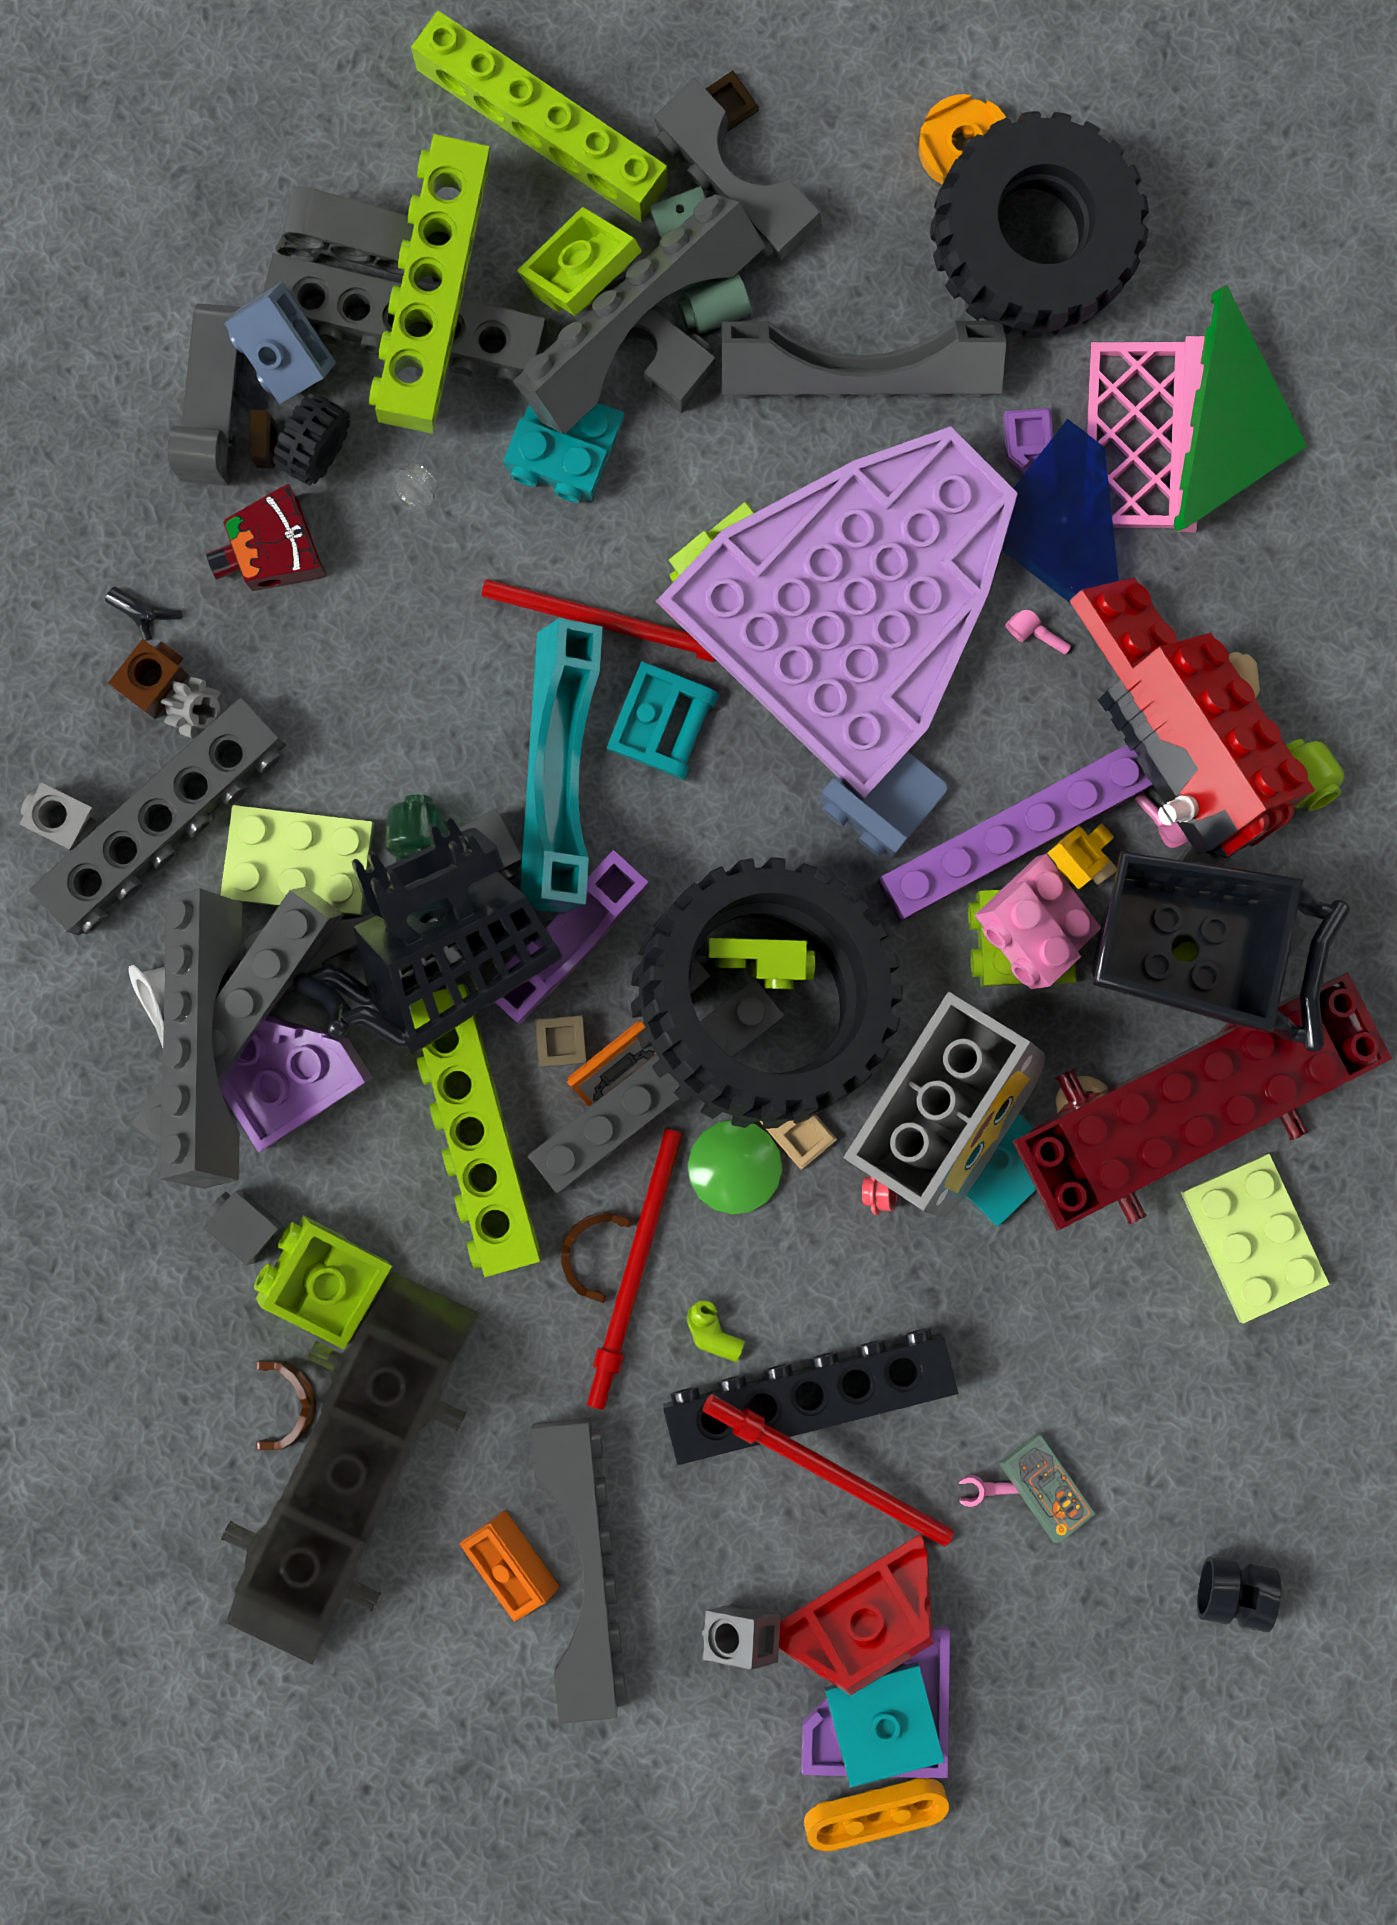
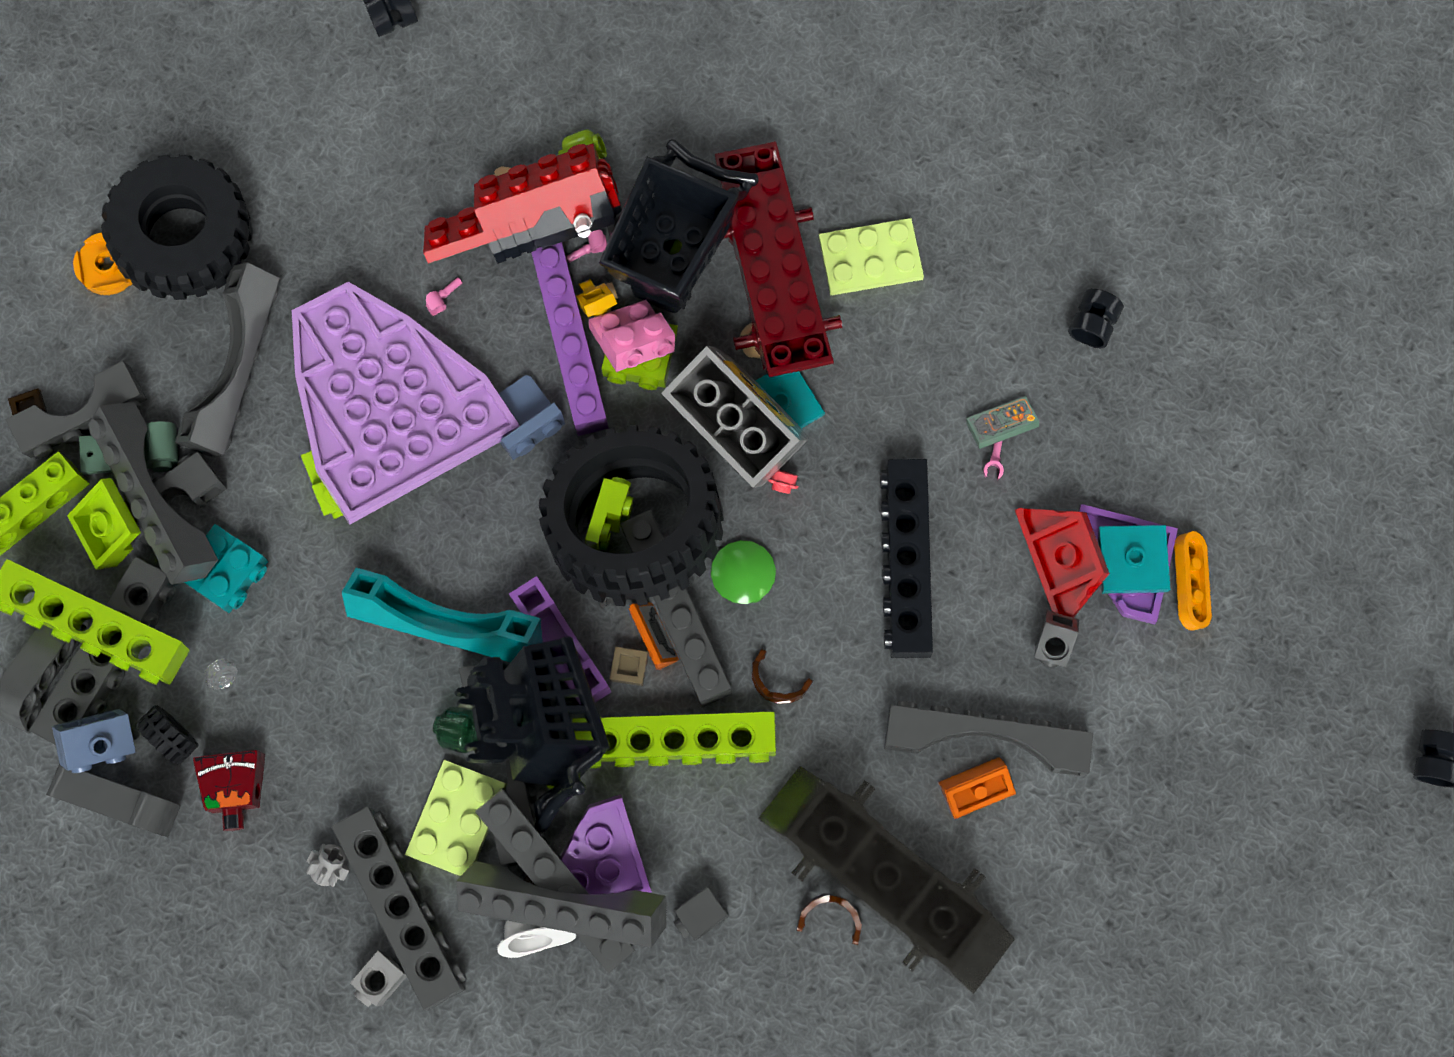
camera: 70 degrees left, 10 degrees down
(129, 676) = (311, 898): reddish brown brick -> none
(139, 611) = (249, 890): black bar -> none
(262, 438) = (156, 771): dark brown tile -> none
(320, 1281) = (750, 869): lime plate -> none
(595, 616) = (356, 561): red bar -> none
(609, 1359) = (851, 685): red bar -> none
(647, 717) = (424, 556): teal plate -> none
(708, 1332) = (850, 616): lime arm -> none
(752, 1428) = (918, 594): red bar -> none
(803, 1140) = (735, 525): tan tile -> none
(1026, 435) = (320, 270): medium lavender tile -> none
(1065, 516) = (373, 258): clear blue plate -> none
(1186, 381) = (339, 171): bright pink fence -> none
(1236, 417) = (339, 136): green tile -> none

